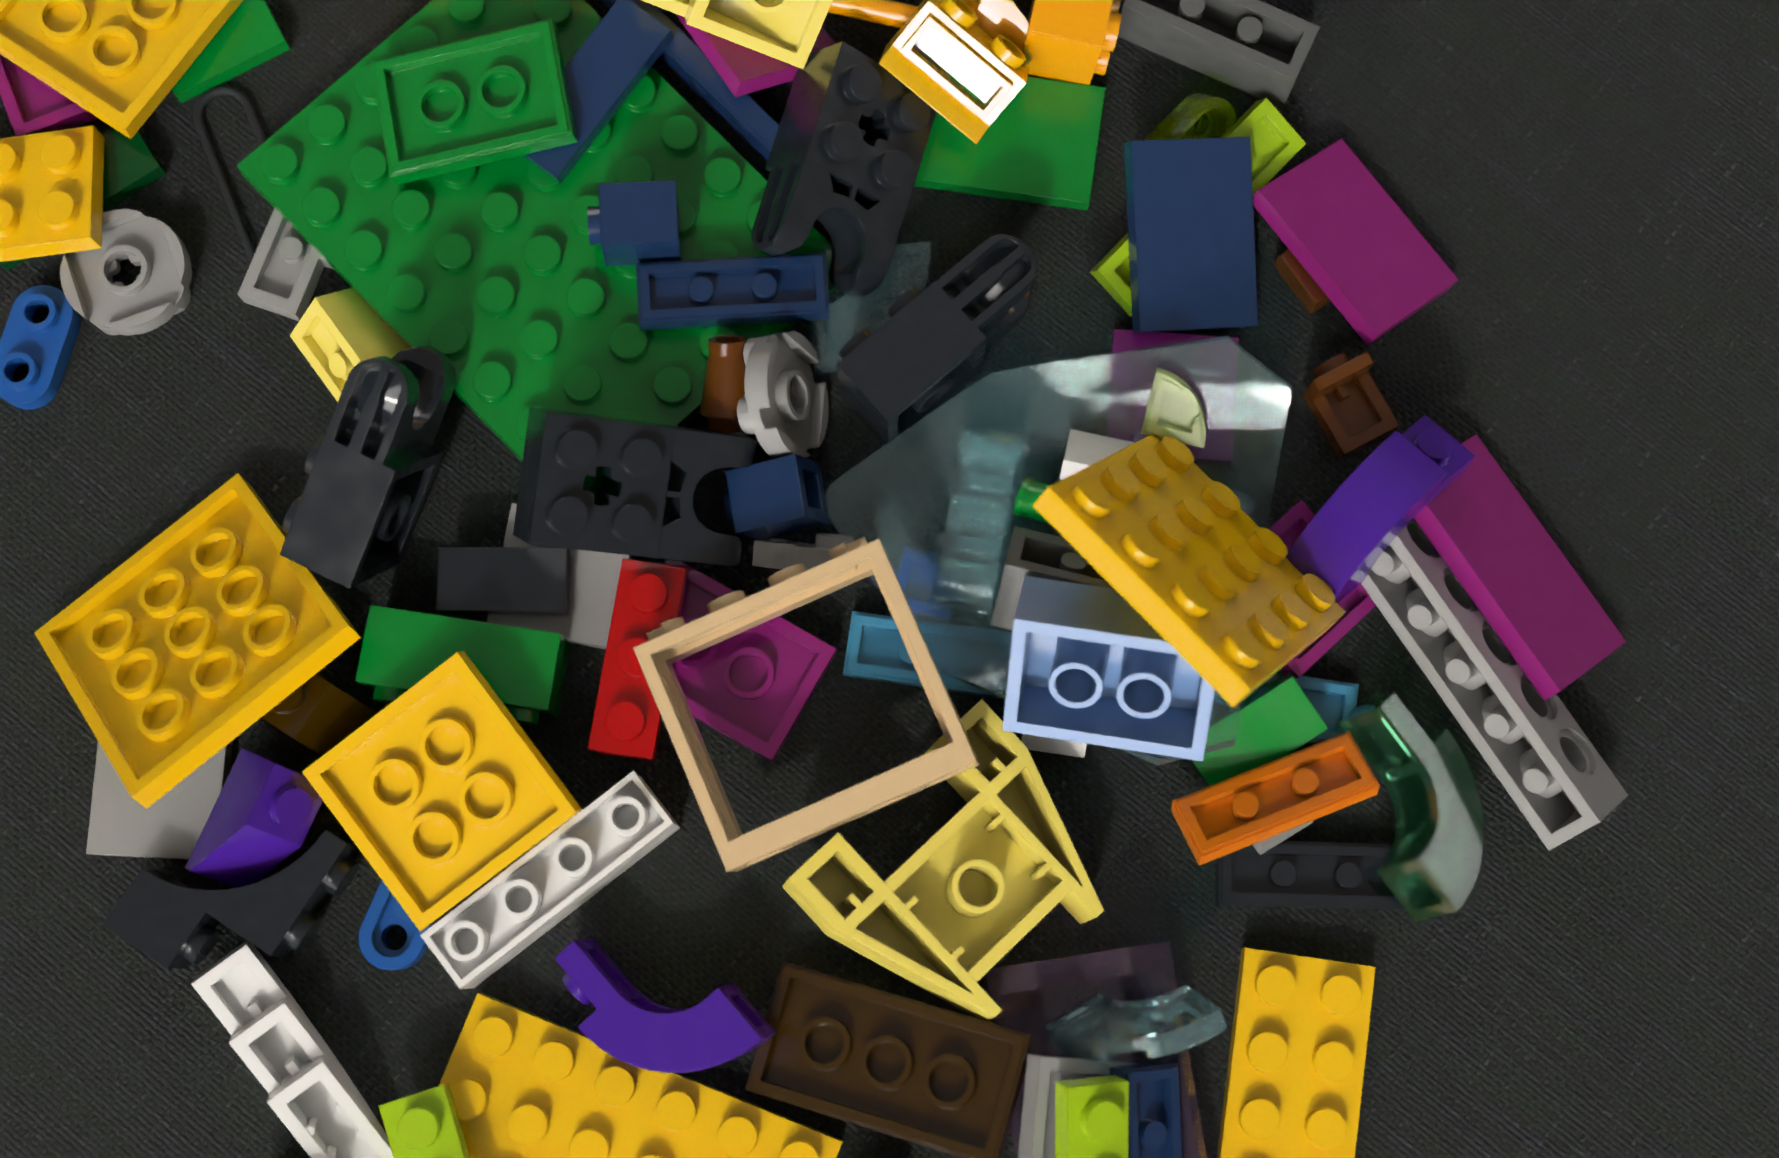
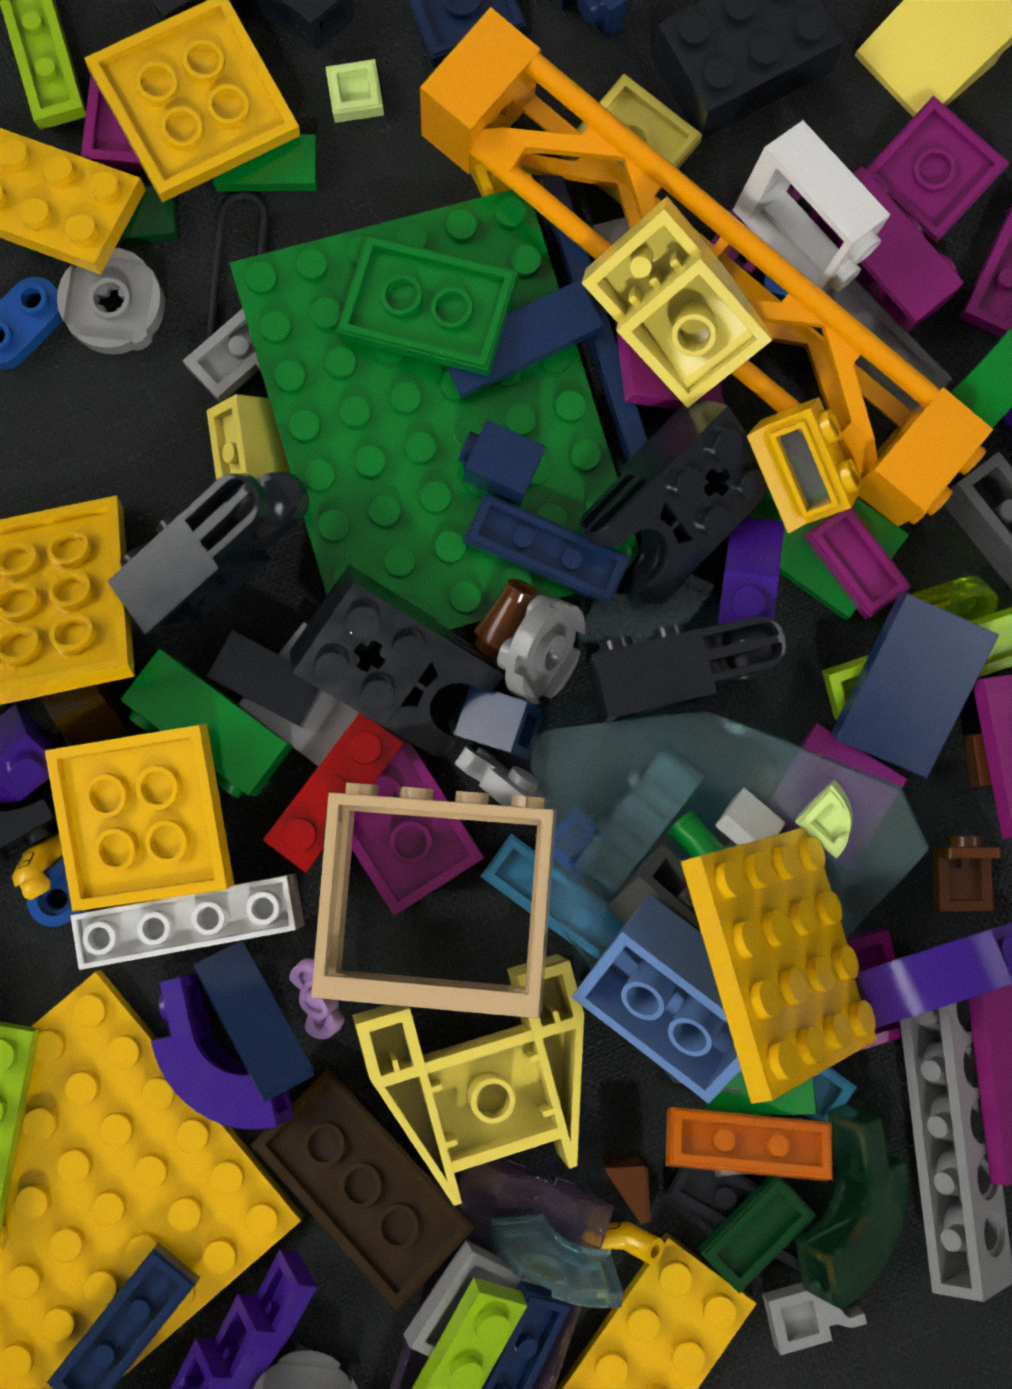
camera: 25 degrees right, 5 degrees up
(351, 904) = (33, 862): none -> yellow arm
(678, 944) = (253, 1021): none -> dark blue tile
(735, 895) = (323, 1014): none -> lavender piece
(958, 199) = (751, 570): none -> dark purple slope
(1064, 141) = (856, 562): none -> magenta tile
(1176, 908) = (631, 1179): none -> reddish brown slope
(1212, 968) = (633, 1240): none -> yellow arm
(1334, 888) = (756, 1232): none -> dark green tile
(1432, 952) = (803, 1319): none -> light grey plate

